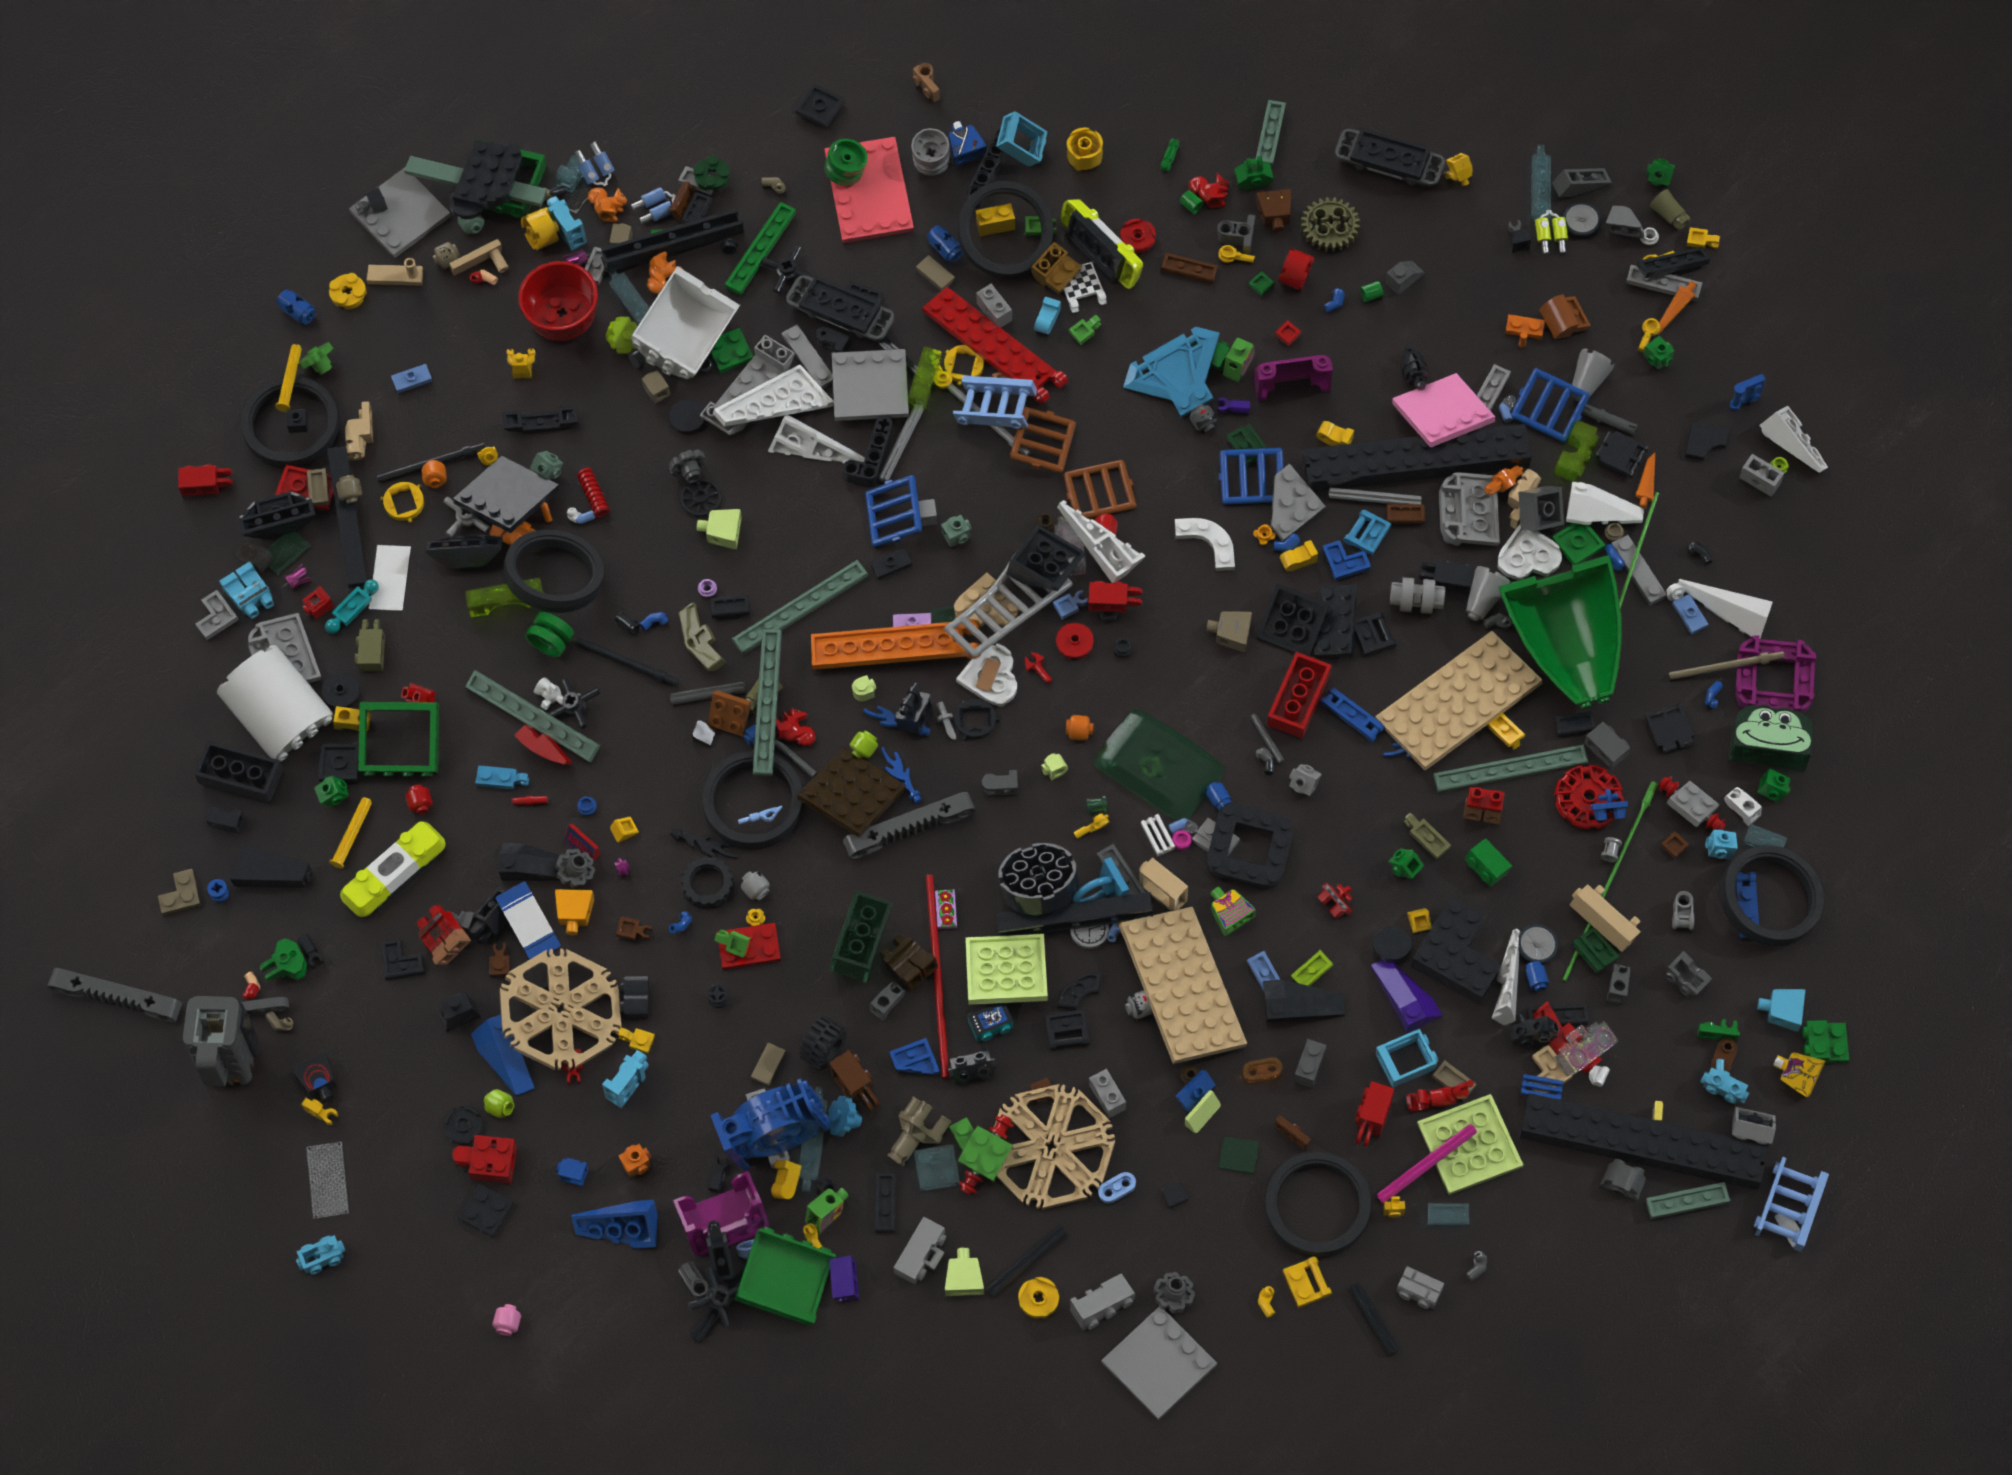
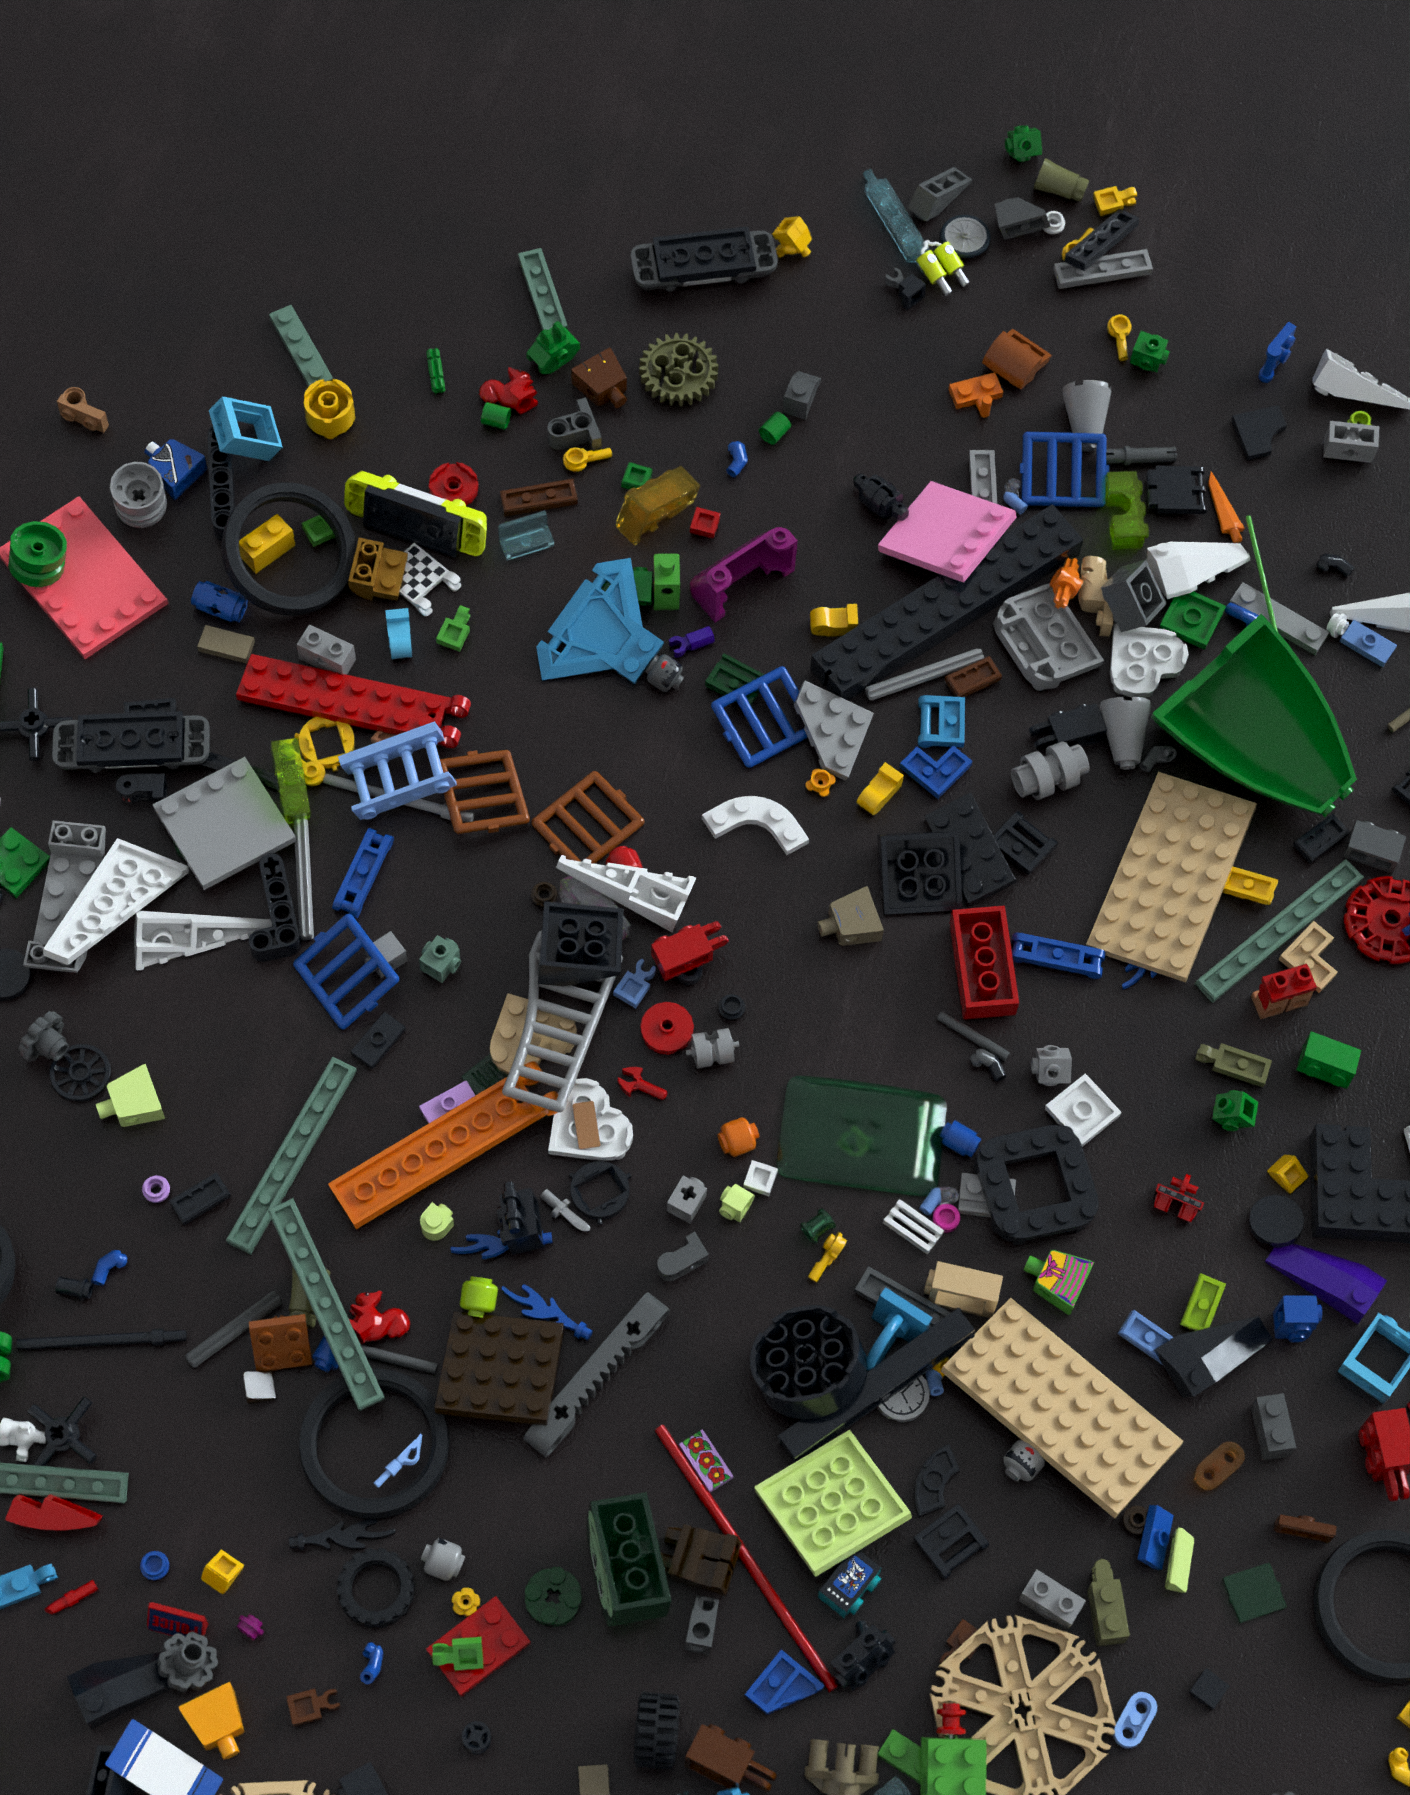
camera: 35 degrees left, 0 degrees up
(698, 638) = (183, 1262): olive plate -> none
(808, 356) = (120, 823): light grey plate -> none
(817, 947) = (550, 1613): none -> dark green plate
(939, 455) = (362, 872): none -> blue plate
(1019, 749) = (688, 1208): none -> light grey brick
(1078, 759) = (760, 1178): none -> white plate
(1091, 99) = (299, 345): none -> sand green plate
(1093, 665) = (712, 1048): none -> light grey wheel
(1139, 1114) = (1107, 1606): none -> olive hinge
(1165, 289) = (525, 535): none -> clear light blue panel
(1262, 304) = (655, 501): none -> clear yellow wedge
(1290, 544) = (857, 782): blue arm -> none
(1296, 269) = (671, 440): red brick -> none
(1309, 817) = (1083, 1109): none -> white plate
(1364, 1005) = (1296, 1317): none -> blue brick
(1515, 794) = (1307, 951): none -> tan plate
(1614, 531) = (1224, 586): dark tan plate -> none
(1679, 301) = (1135, 281): orange bar -> none

